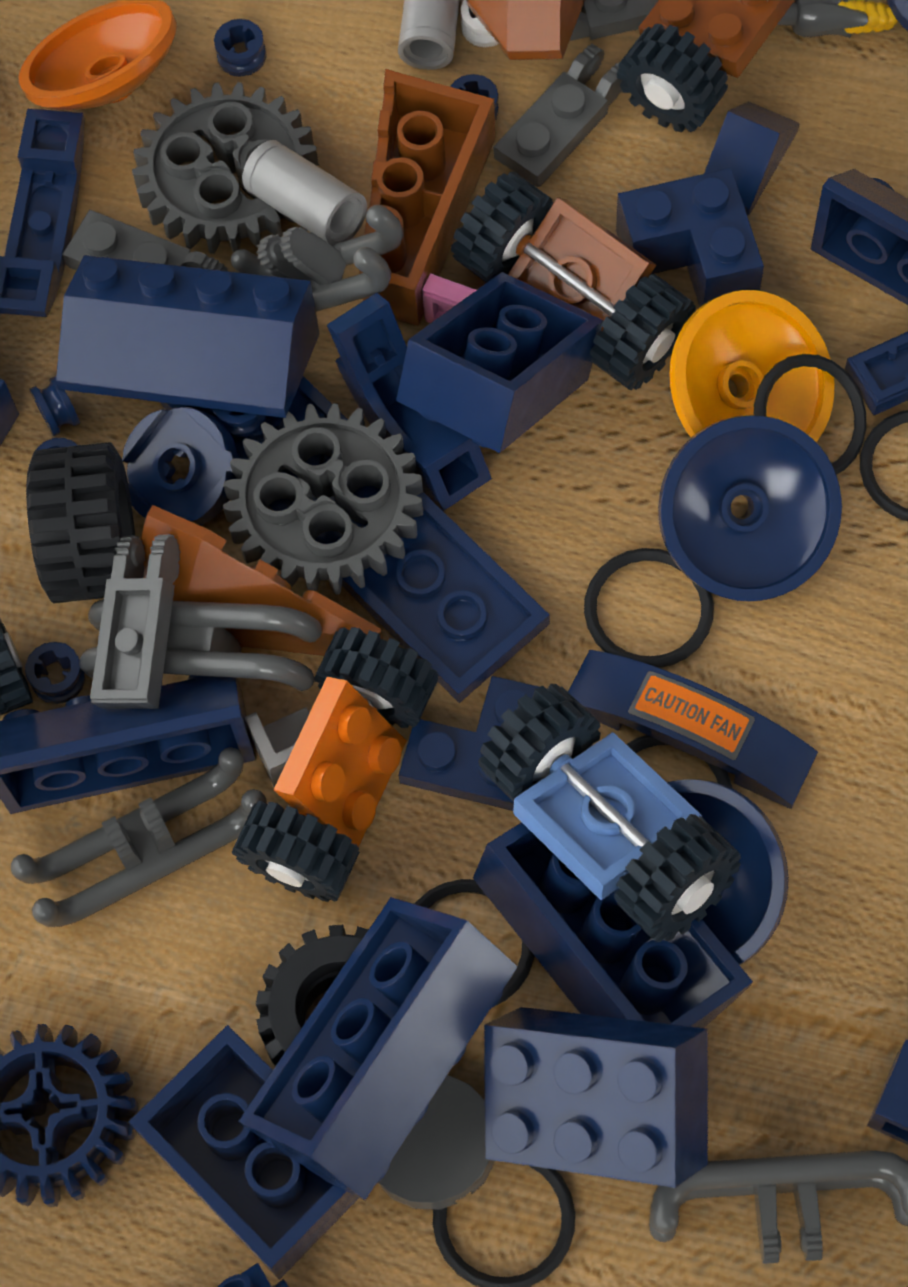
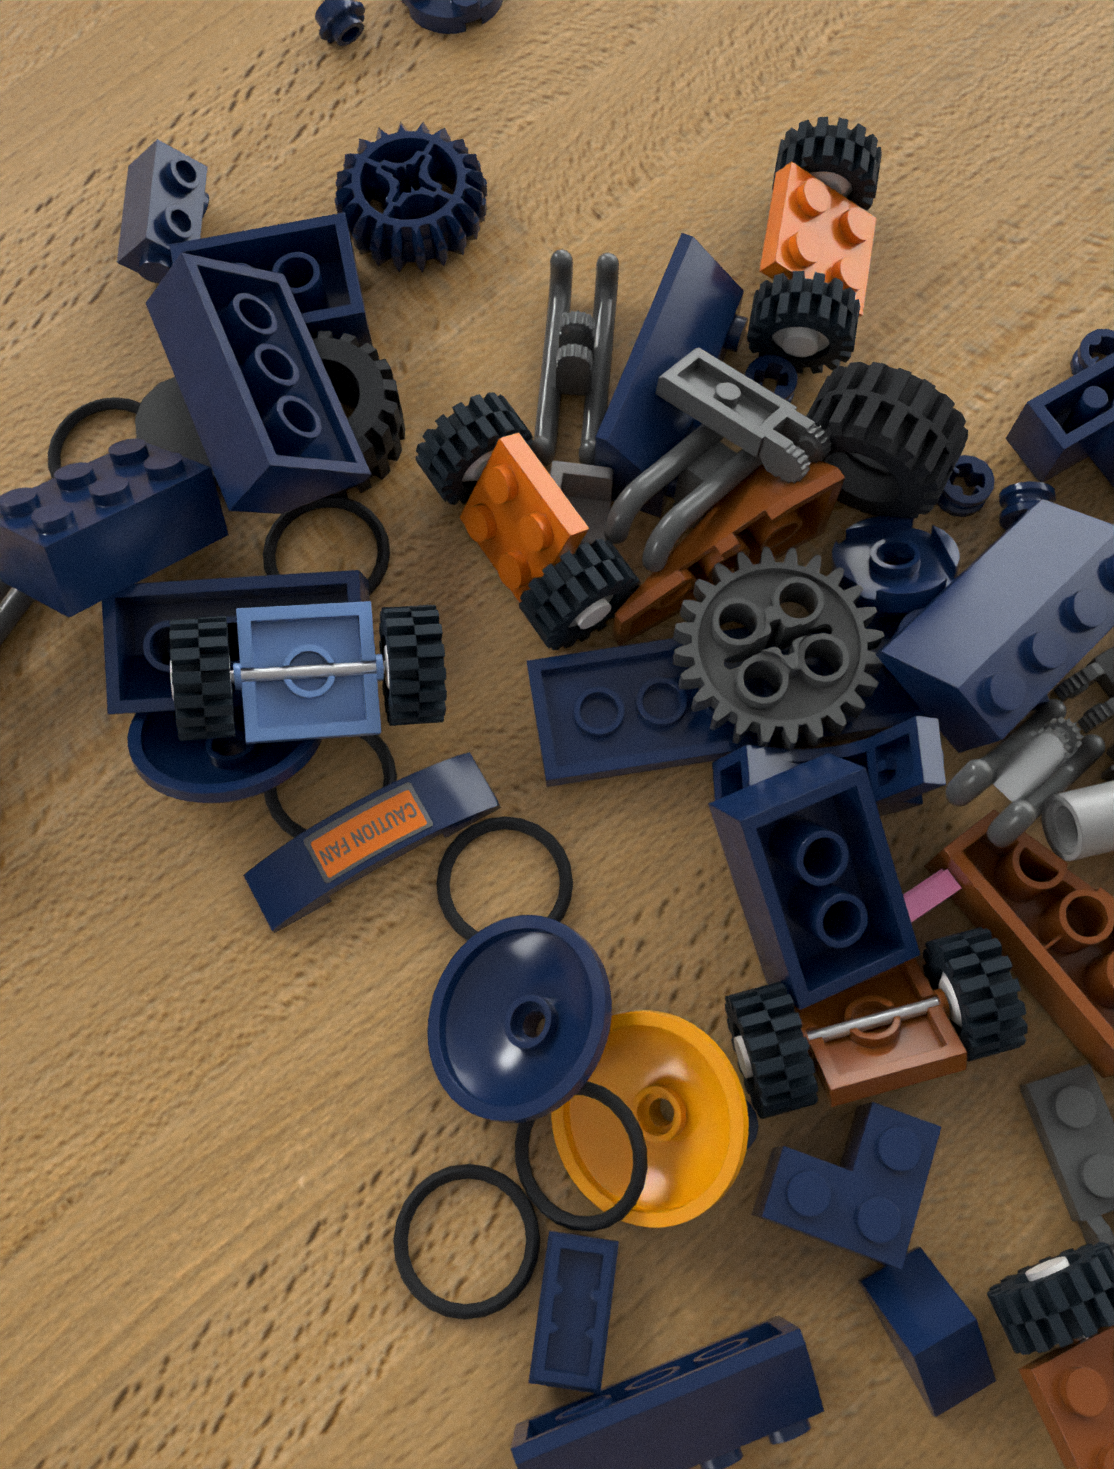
camera: 120 degrees right, 5 degrees up
(448, 757) = (473, 642): dark blue plate -> none

